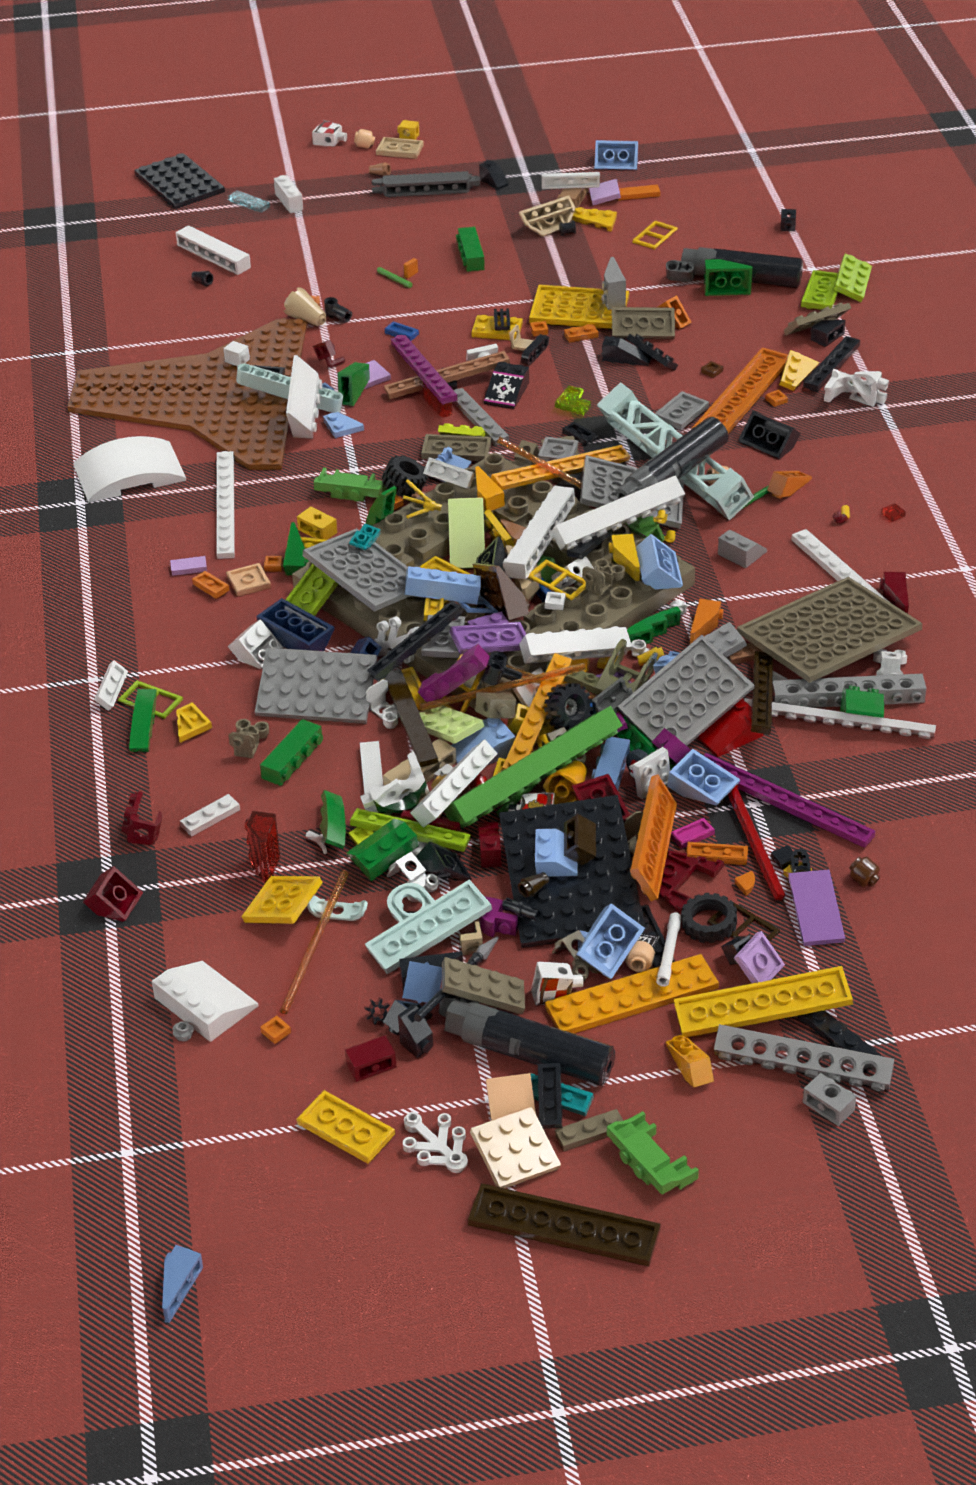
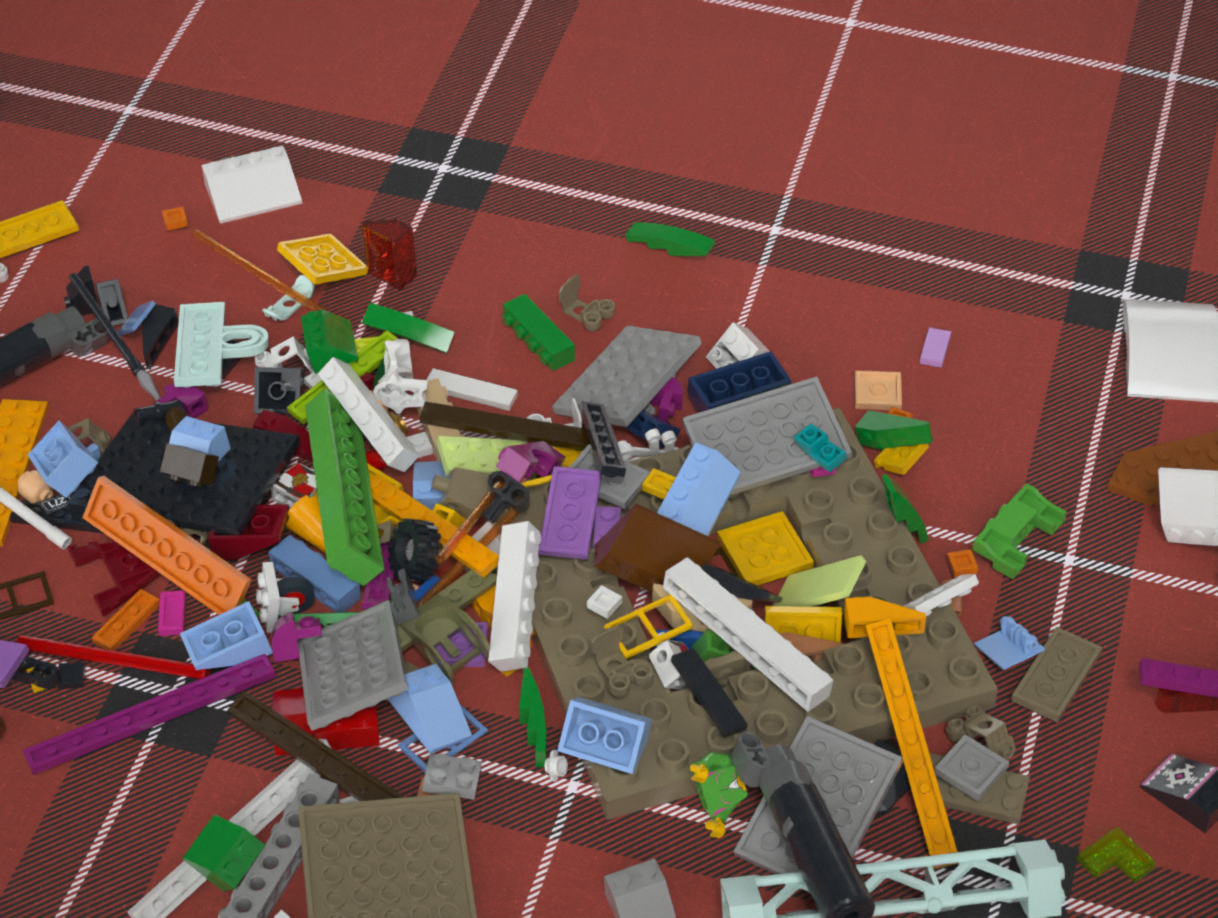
camera: 115 degrees right, 5 degrees up
(111, 685) = (744, 231): white plate -> none
(113, 895) = (425, 160): dark red slope -> none
(134, 823) = (511, 188): dark red piece -> none
(178, 699) = (718, 269): lime window -> none
(191, 722) = (645, 275): yellow wing -> none
(209, 815) = (494, 255): white plate -> none
(210, 584) = (882, 352): orange plate -> none
(225, 505) = (1049, 412): white plate -> none
(317, 524) = (949, 475): yellow brick -> none
(341, 424) = (1182, 575): light blue wing -> none
(370, 1058) = (90, 254): dark red brick -> none
(371, 1009) = (134, 283): black gear -> none
(399, 470) = (1000, 559): black tyre -> none
(428, 504) = (885, 553): yellow plant -> none
(463, 430) = (1091, 690): neon yellow hinge -> none
(471, 941) = (162, 375): tan panel -> none
(478, 416) = (1133, 732): light grey plate -> none
(483, 985) = (90, 351): dark tan plate -> none
(539, 462) = (913, 693): clear orange piece -> none
(553, 981) = (55, 404): torso -> none
(580, 433) = (1049, 834): black tile -> none
(617, 513) = (718, 715): white brick -> none
(625, 554) = (661, 705): yellow slope -> none
(638, 647) = (512, 691): white plate -> none
(643, 658) = (480, 700): yellow cone -> none
(706, 618) = (516, 785): orange slope -> none
(709, 902) = (40, 583): black tyre -> none
(745, 882) = (64, 624): orange tile -> none

